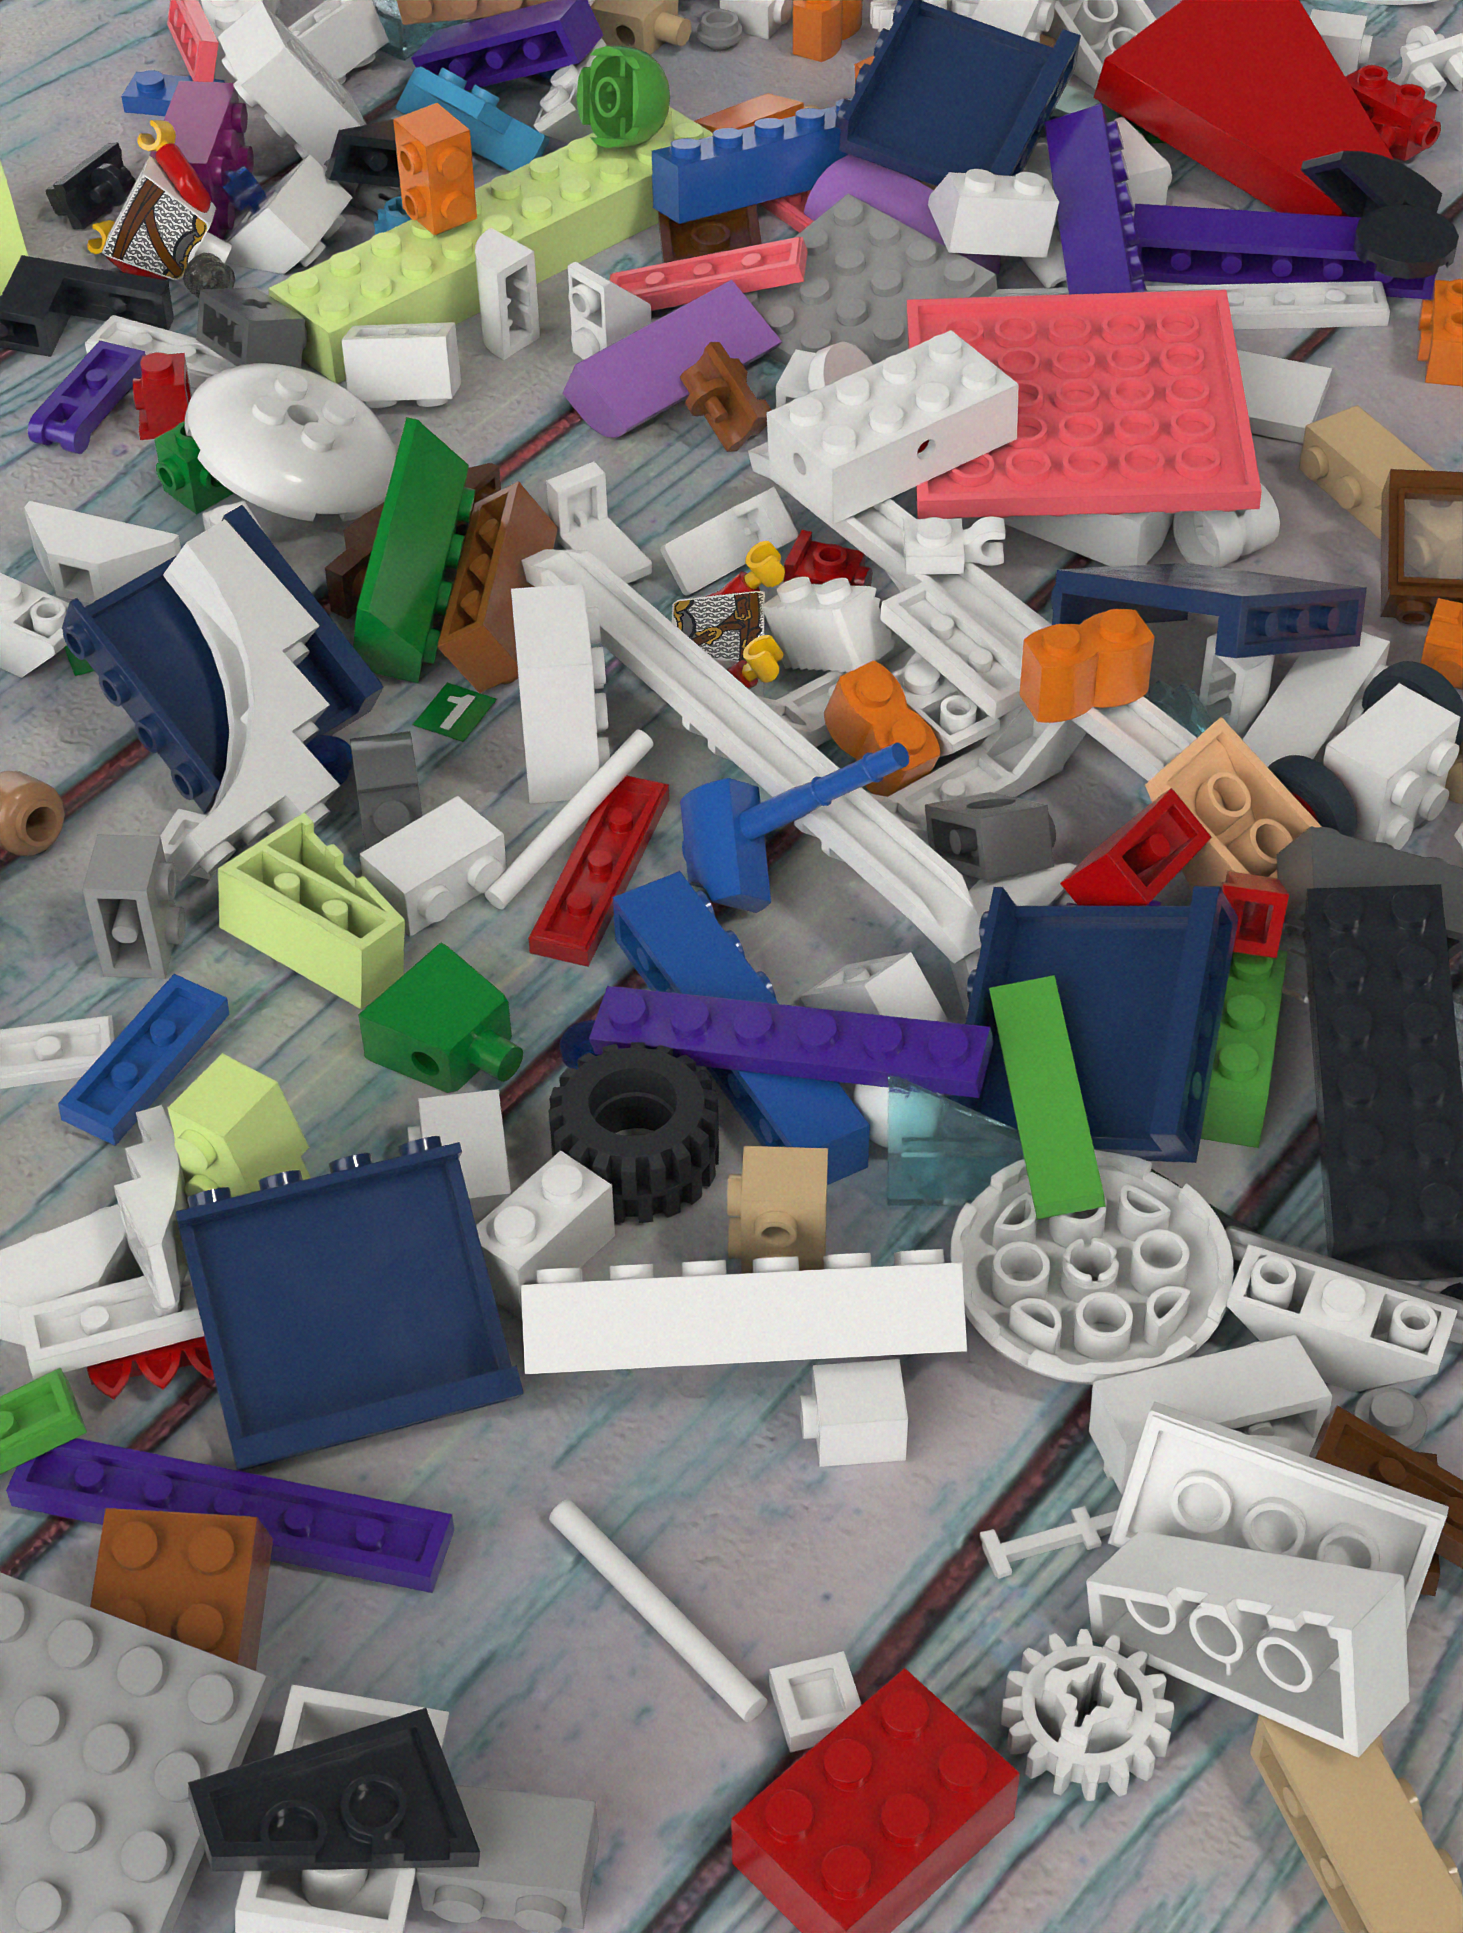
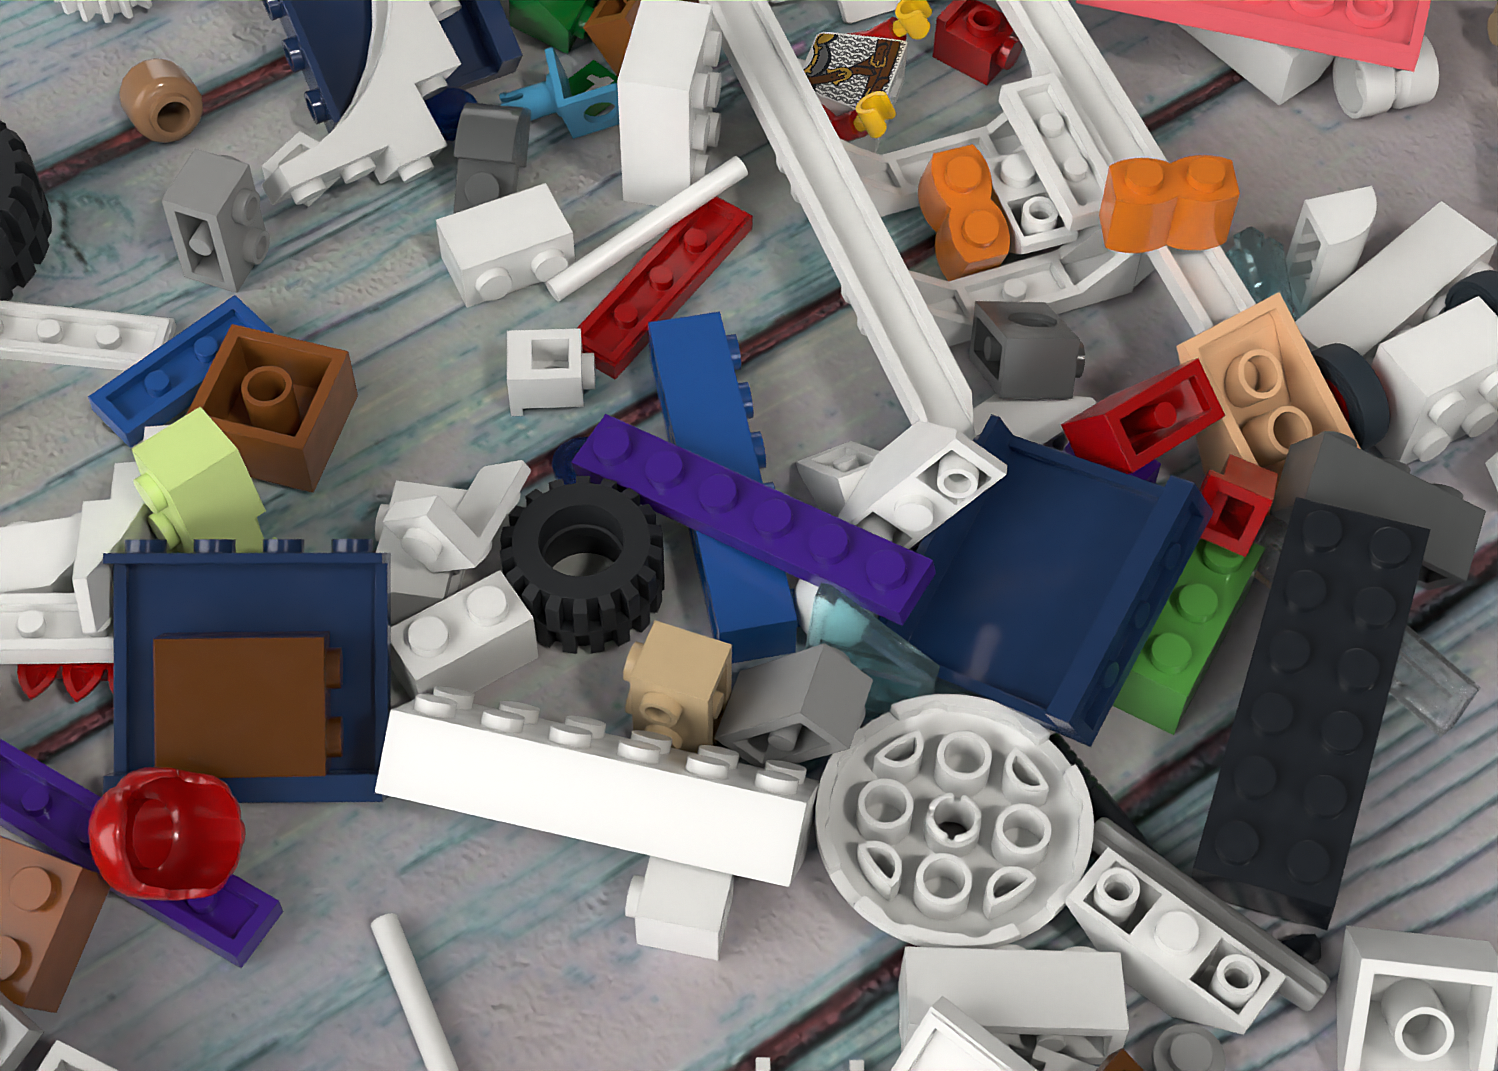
camera: 15 degrees right, 10 degrees up
(274, 1033) = (279, 403): none -> dark orange brick
(313, 913) = (375, 267): yellowish green wedge -> none
(326, 1469) = (167, 834): none -> red piece
(358, 1330) = (247, 703): none -> reddish brown brick
(428, 721) = (556, 97): none -> dark azure bracket
(441, 1024) = (452, 405): green torso -> none
(505, 1119) = (459, 538): none -> white bracket
(526, 963) = (547, 369): none -> white brick
(728, 824) = (784, 273): blue piece -> none
(827, 625) = (952, 92): white brick -> none
(902, 1198) = (795, 707): none -> light grey brick
(943, 546) = (1082, 40): white plate -> none
(953, 958) = (920, 483): none -> white slope
(1046, 1098) = (968, 642): bright green tile -> none
(1255, 610) = (1352, 174): dark blue panel -> none

